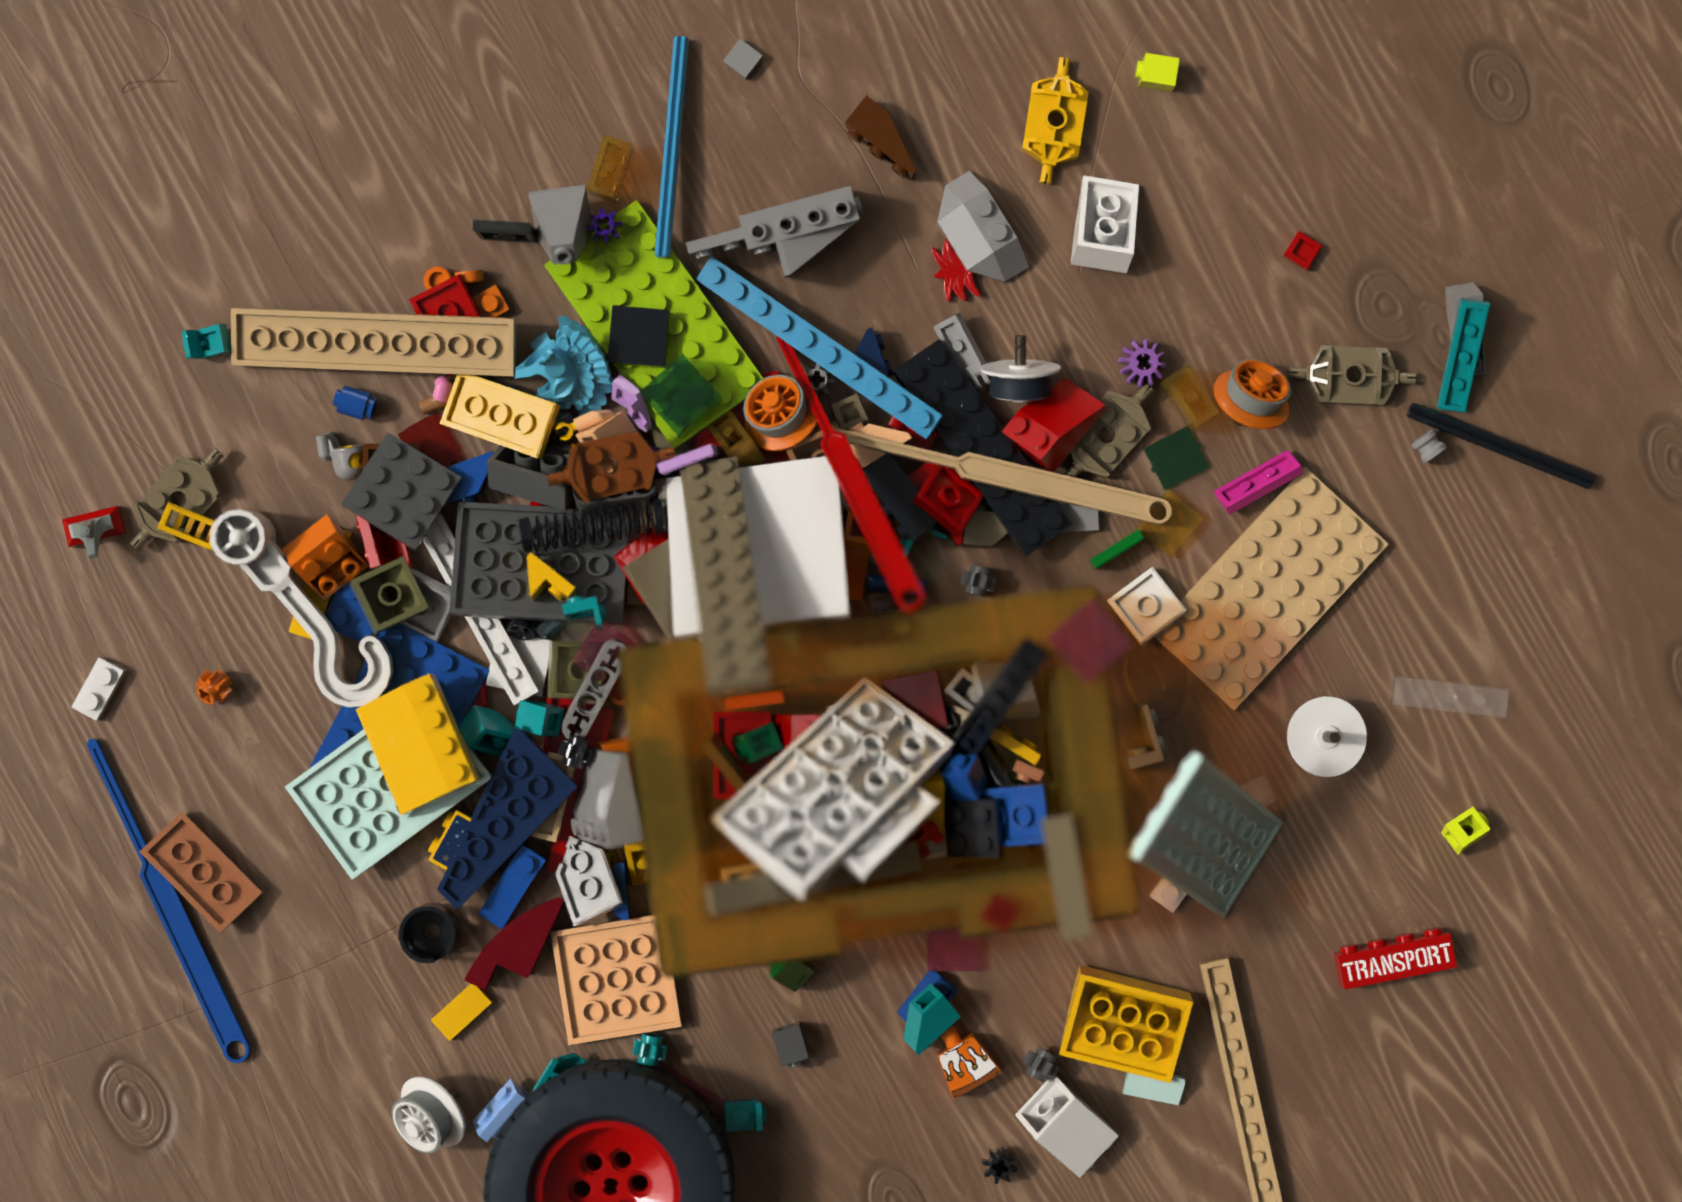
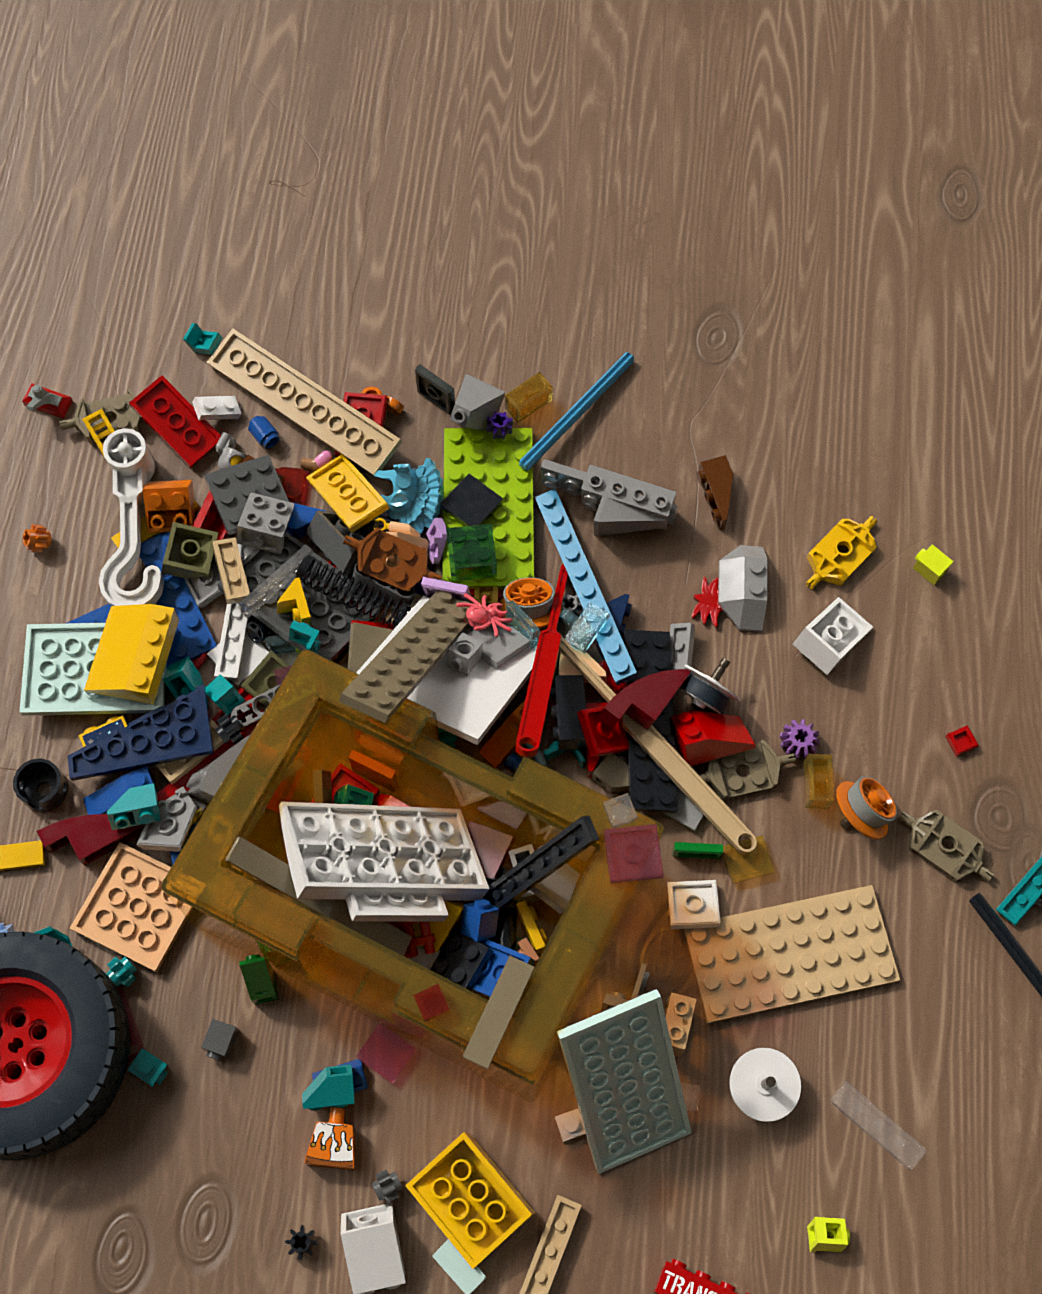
camera: 40 degrees right, 20 degrees down
(255, 458) = (175, 421): none -> red plate
(285, 411) = (216, 407): none -> white plate
(445, 512) = (264, 523): none -> light grey bracket
(453, 591) = (231, 570): none -> tan plate
(491, 302) = (396, 427): orange plate -> none
(507, 571) = (273, 583): none -> clear tile
(545, 892) = (135, 807): none -> teal slope
(742, 59) = (660, 391): light grey tile -> none
(751, 464) = (483, 616): none -> coral animal
(760, 516) = (464, 654): none -> light grey brick
(782, 484) = (501, 648): none -> light grey tile
(794, 445) = (522, 623): none -> clear light blue tile
(856, 400) = (584, 627): none -> clear light blue plate
(970, 439) = (644, 698): none -> dark red slope
(1049, 609) = (620, 810): none -> clear plate
(1175, 458) = (781, 819): clear green piece -> none
(1204, 734) = (679, 1015): none -> tan window
(1258, 482) = (831, 872): dark pink plate -> none
(1428, 445) = (973, 929): light grey wheel -> none

